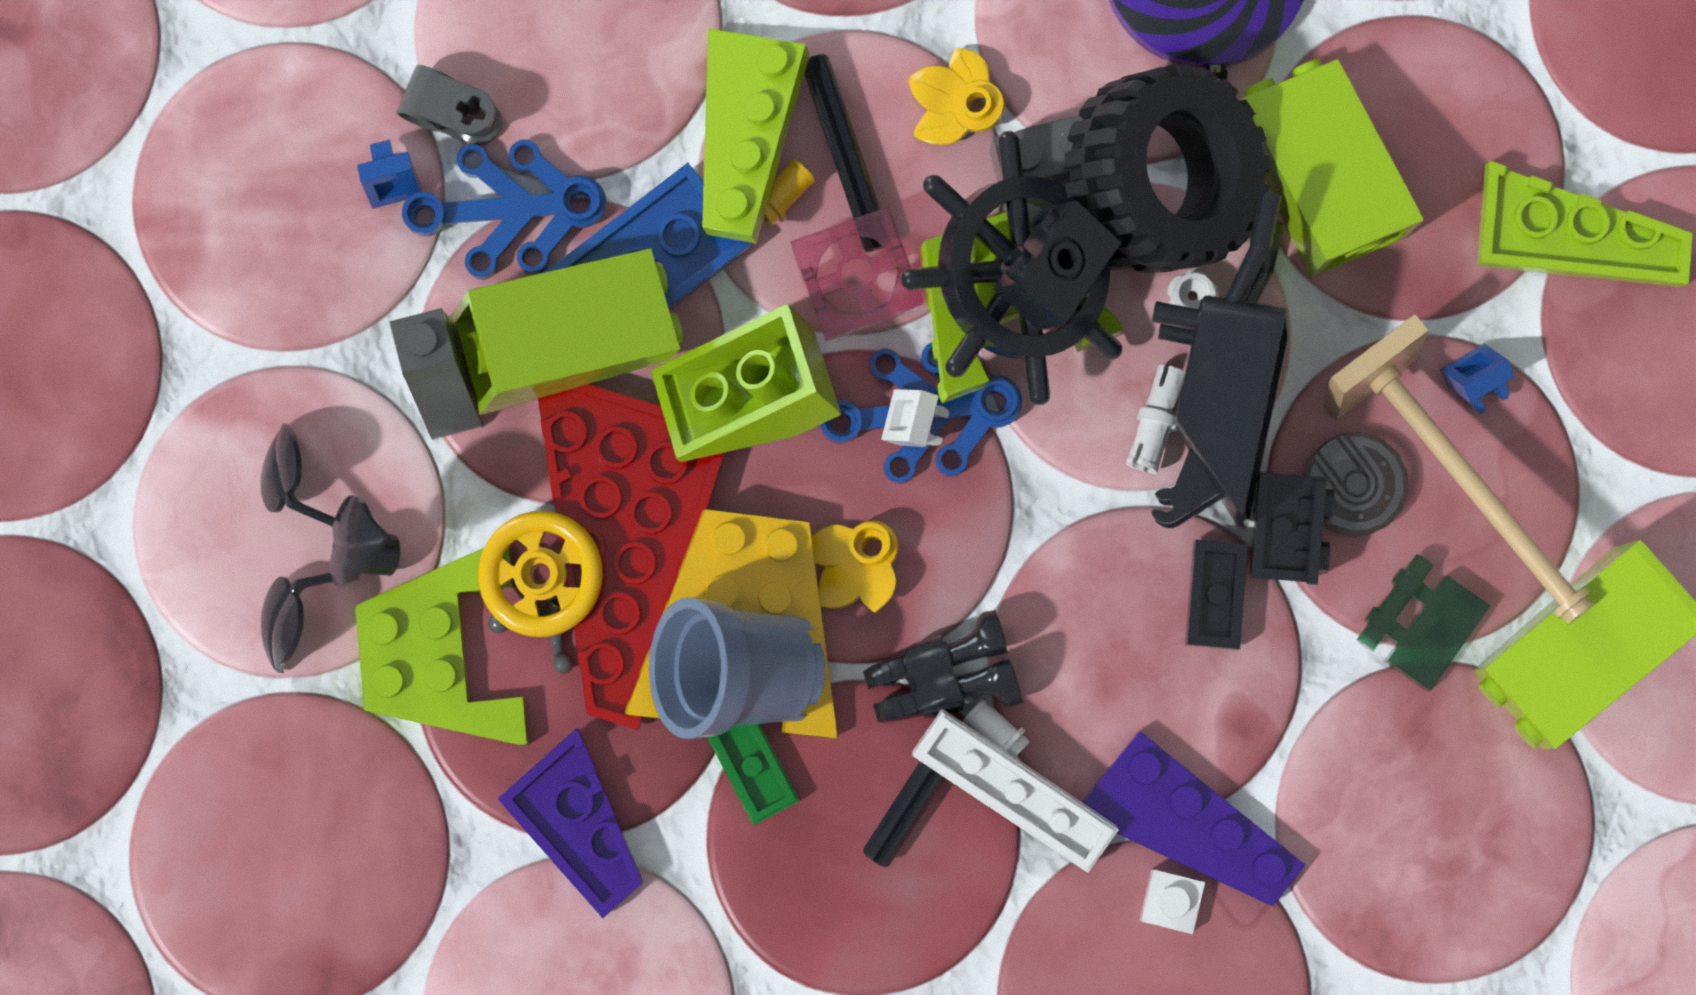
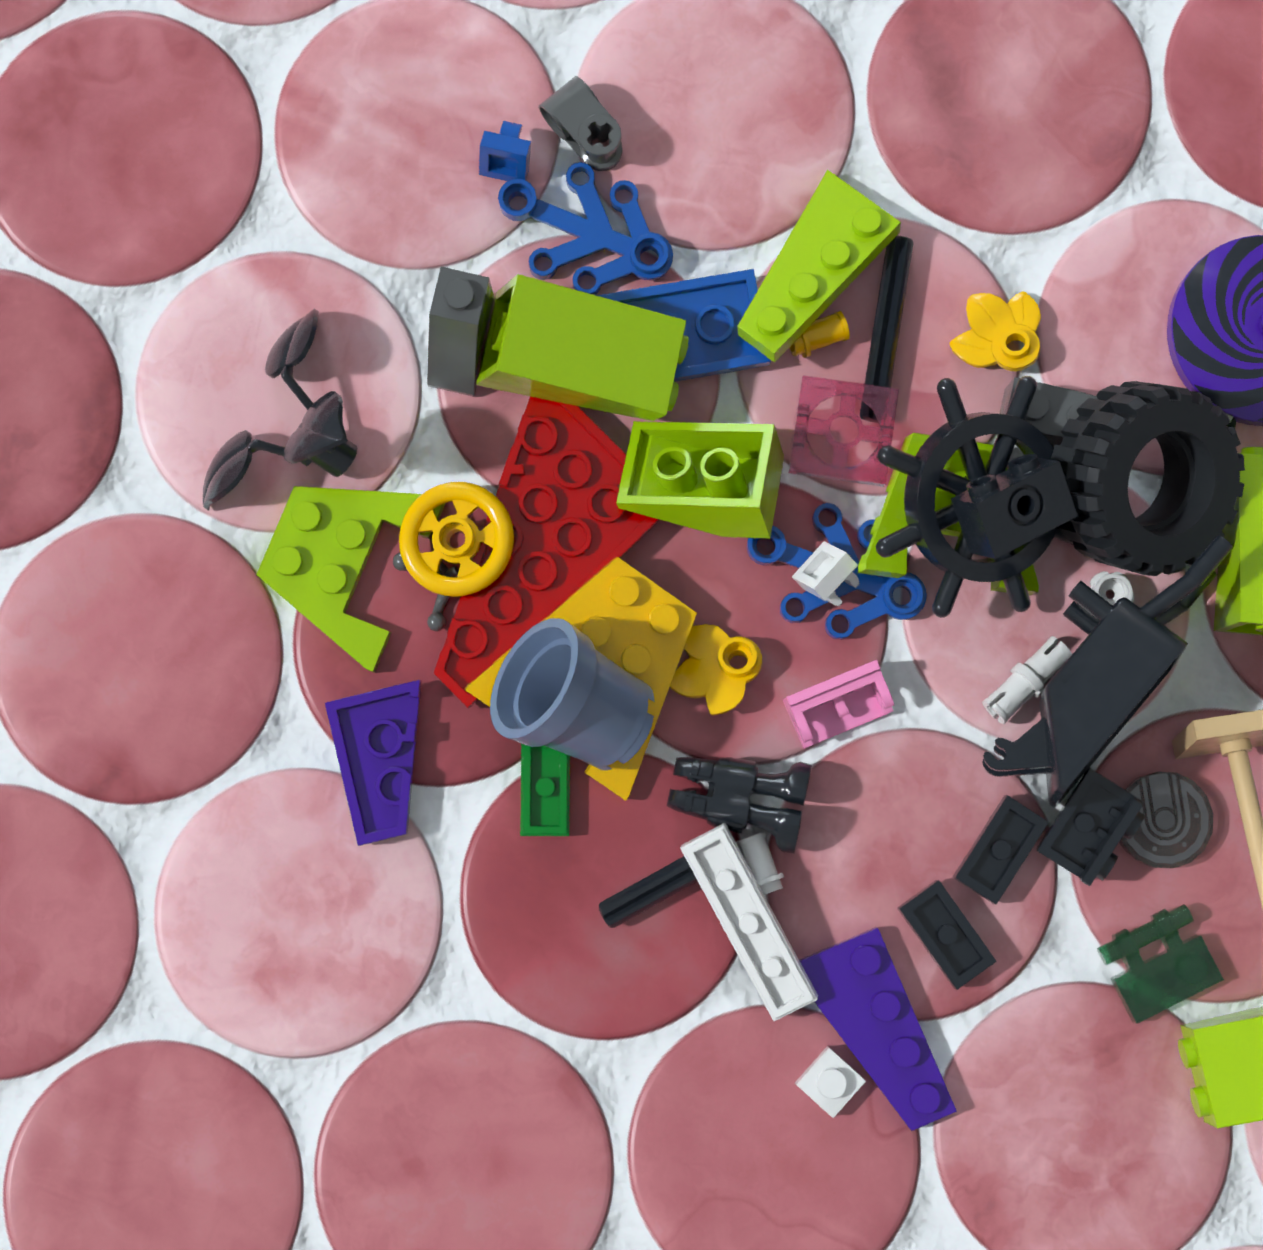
camera: 30 degrees right, 0 degrees up
(991, 537) = (839, 704): none -> bright pink hinge
(1208, 702) = (946, 934): none -> black plate

